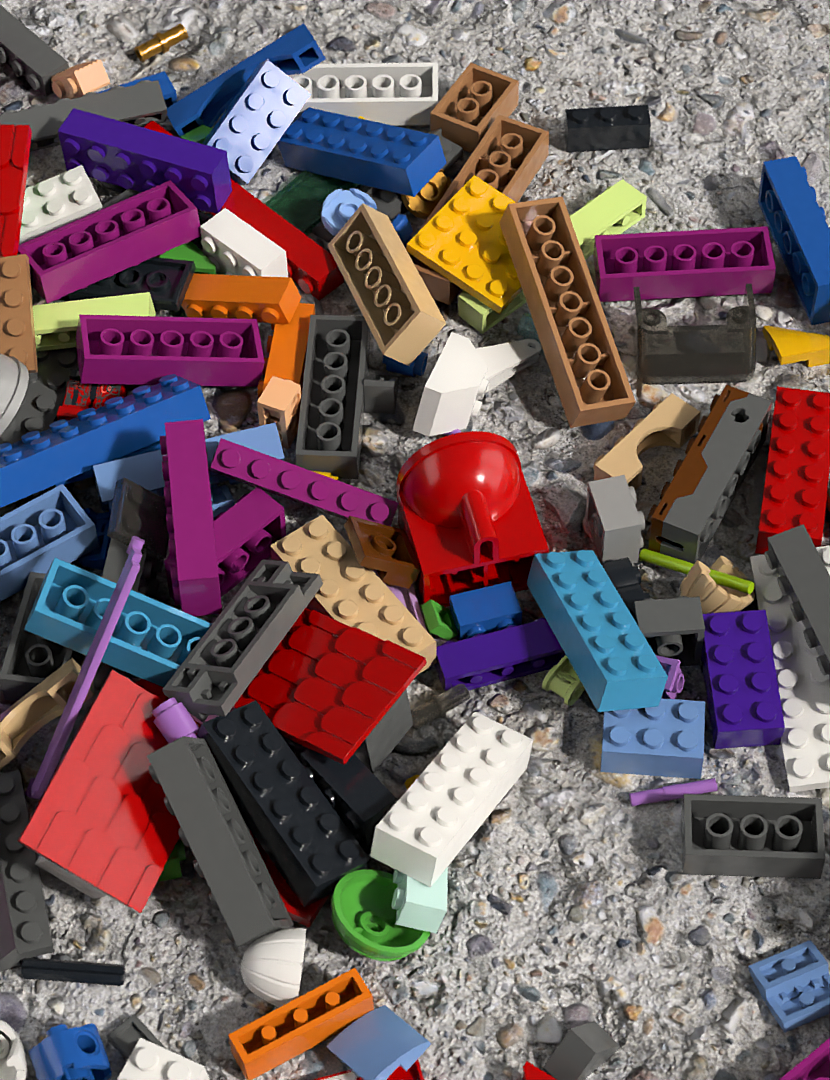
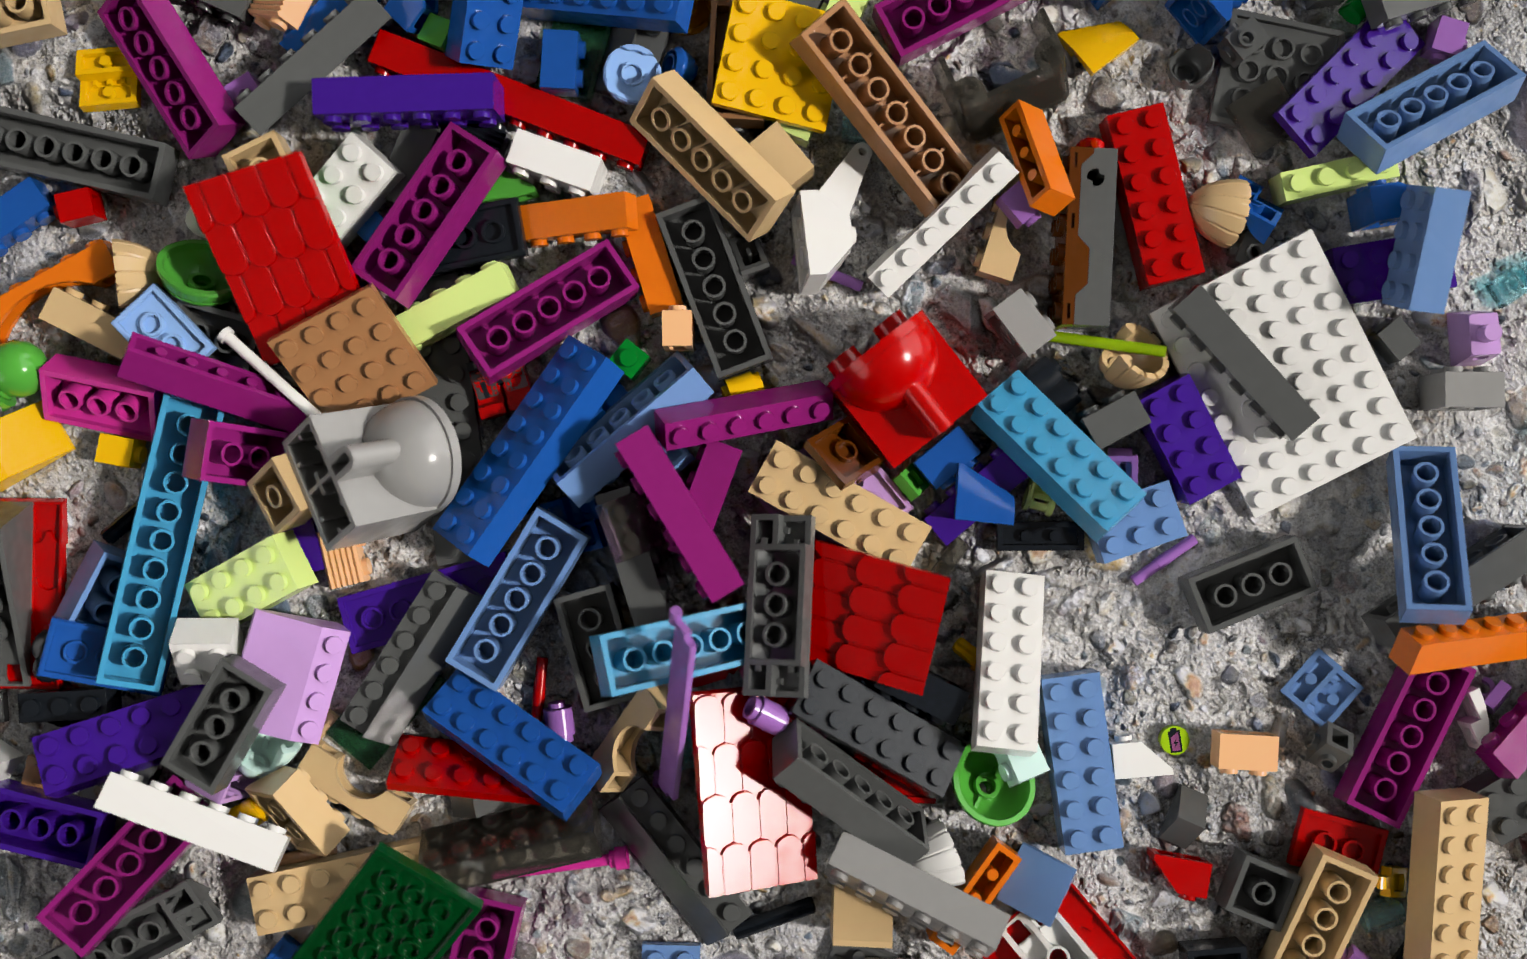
camera: 25 degrees left, 35 degrees up
(175, 984) = (858, 922): none -> tan slope
(223, 419) = (630, 359): none -> green brick
(237, 962) = (916, 895): none -> light grey brick
(294, 191) = (561, 62): none -> blue brick
(455, 310) = (784, 156): none -> tan brick
(486, 943) = (1079, 762): none -> medium blue brick
(501, 646) = (981, 499): none -> blue slope
(549, 717) = (1039, 536): none -> black plate
(551, 967) = (1135, 759): none -> white slope
(605, 970) = (1173, 739): none -> lime tile
(616, 388) = (967, 199): none -> white arch
(658, 419) = (1016, 207): none -> medium lavender brick
(678, 1002) = (1244, 751): none -> light nougat brick
(690, 387) = (1036, 158): none -> orange brick
(778, 1035) = (1329, 746): none -> dark grey brick

